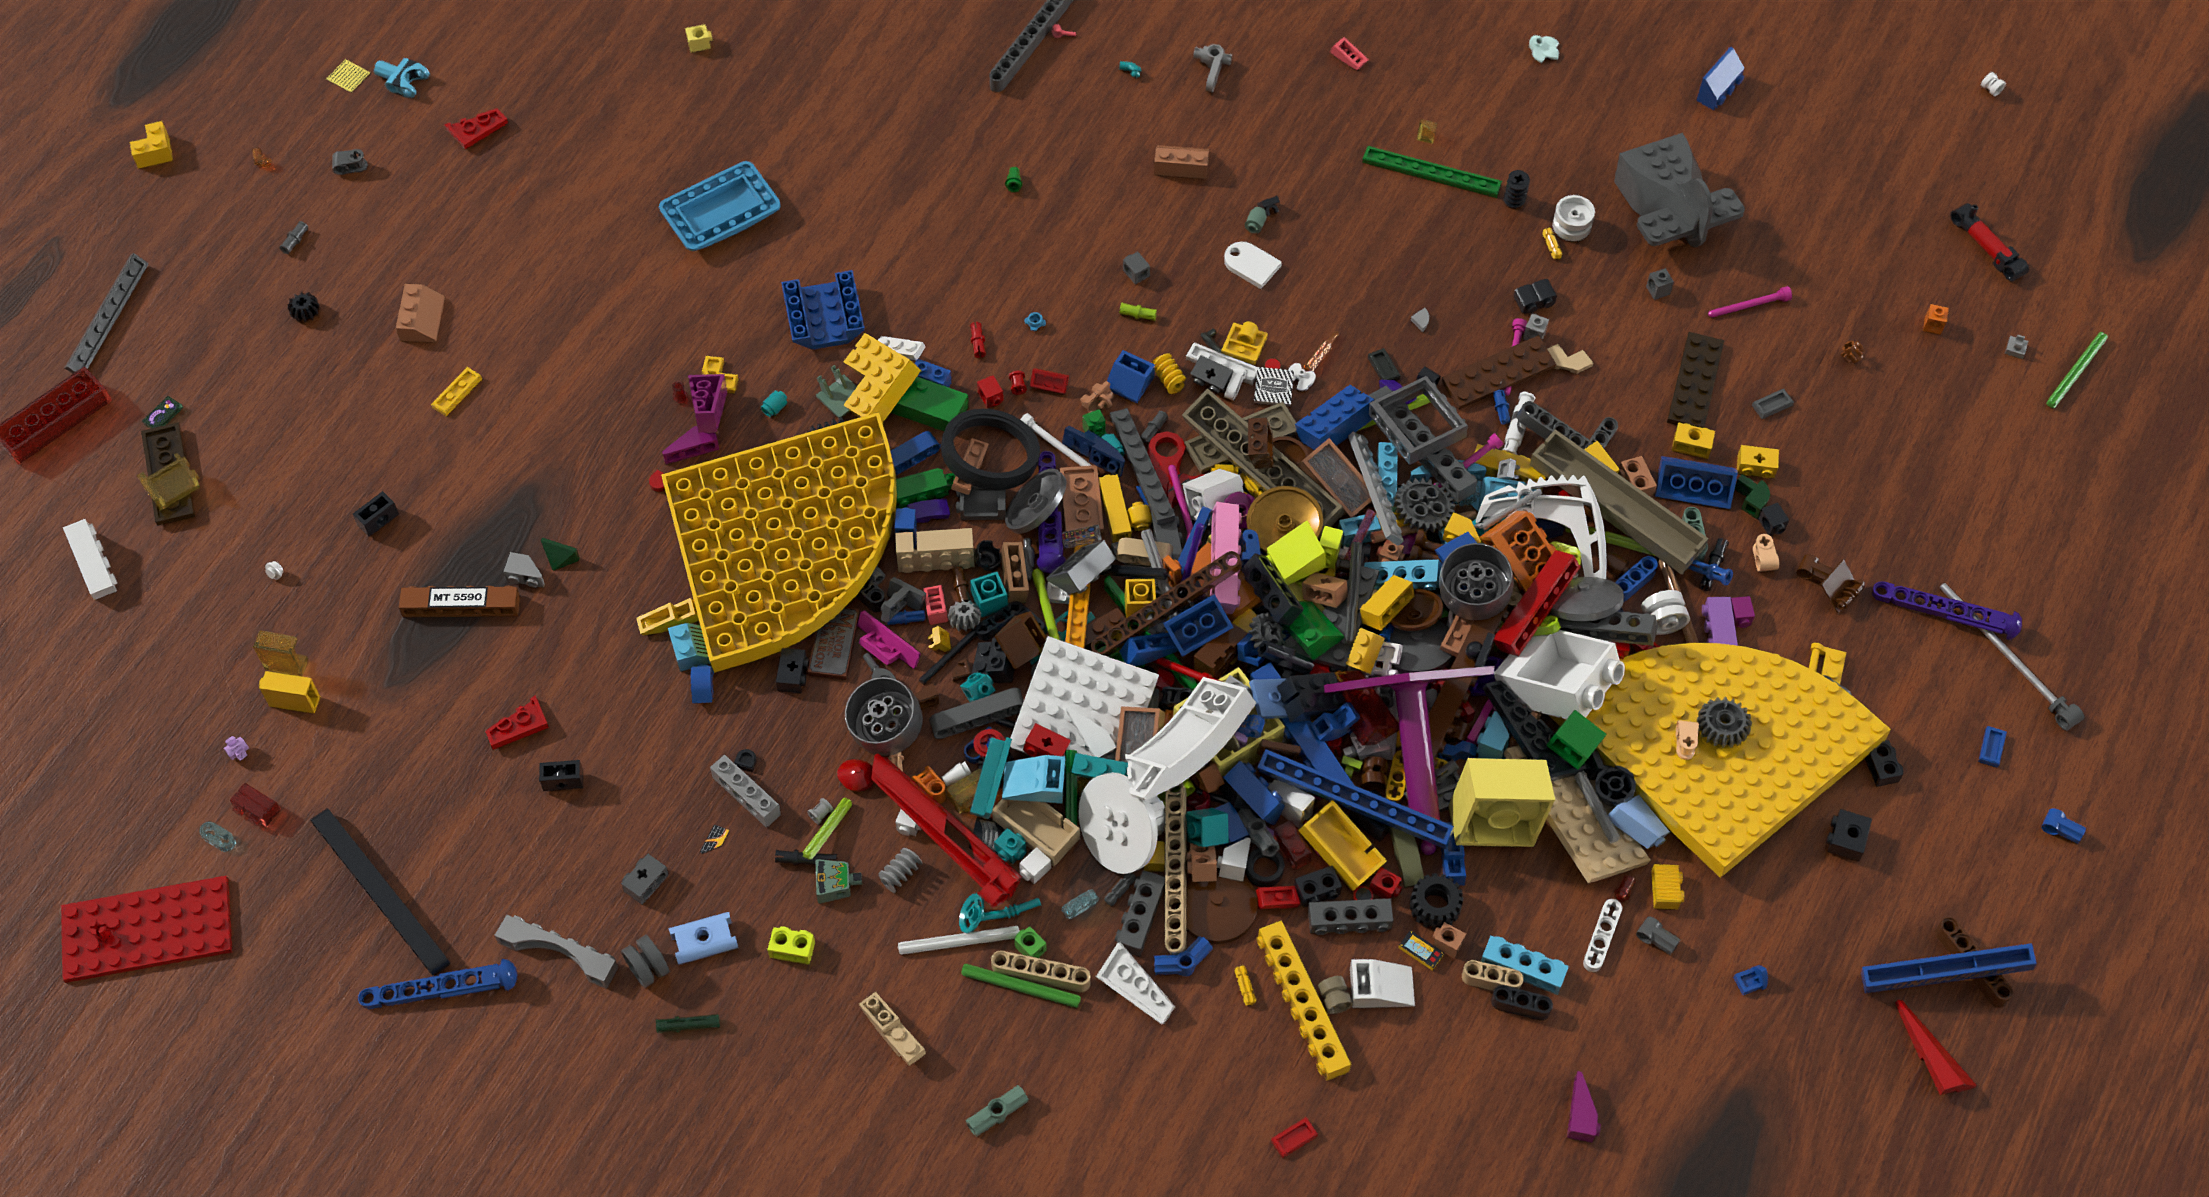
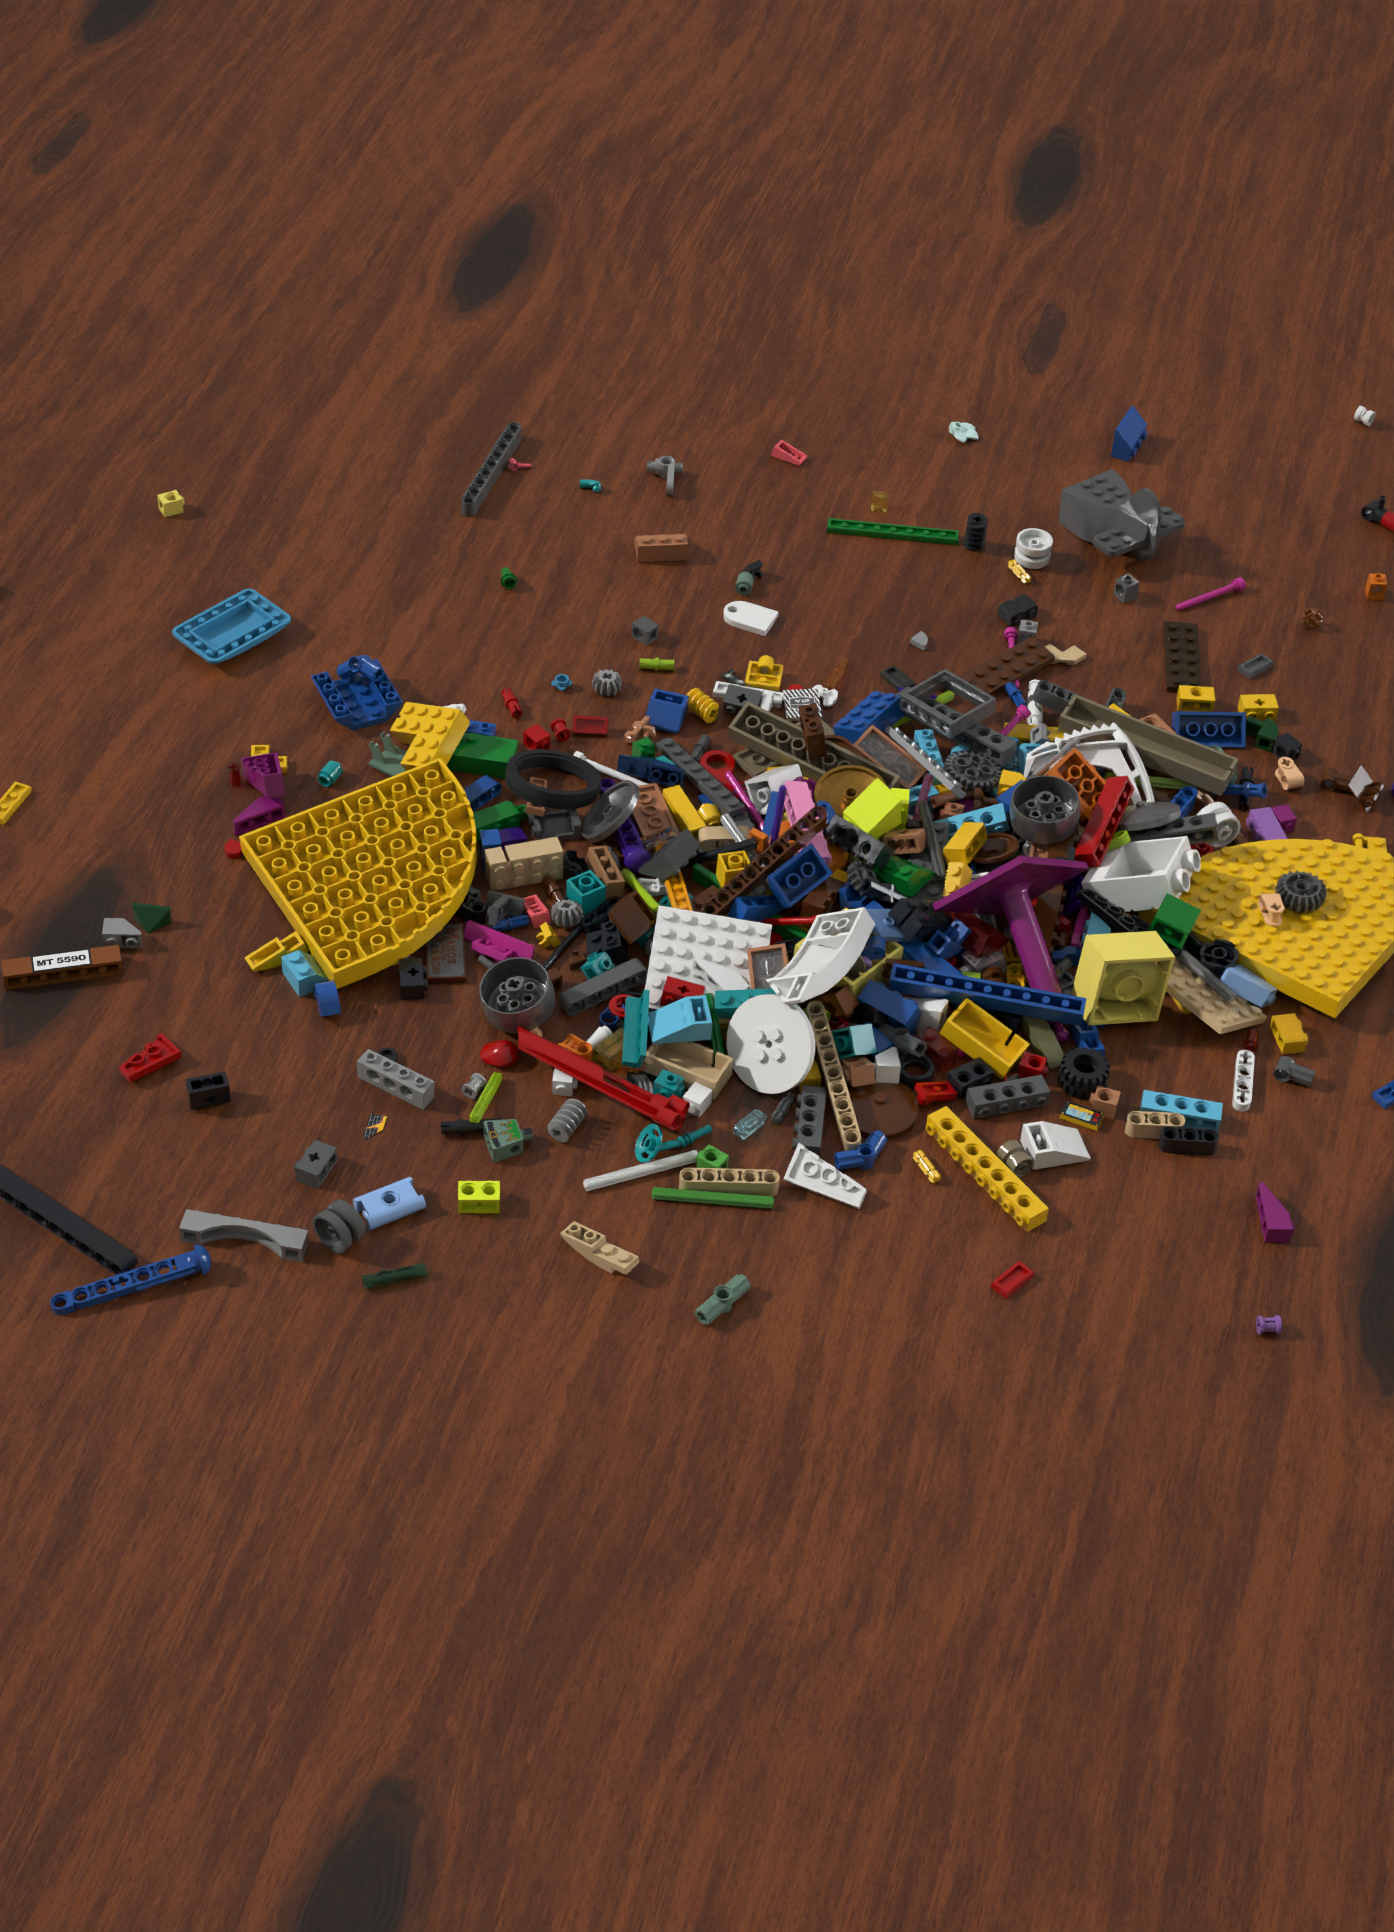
camera: 15 degrees left, 15 degrees down
(834, 280) = (360, 664): none -> blue piece
(1080, 329) = (607, 682): none -> light grey gear

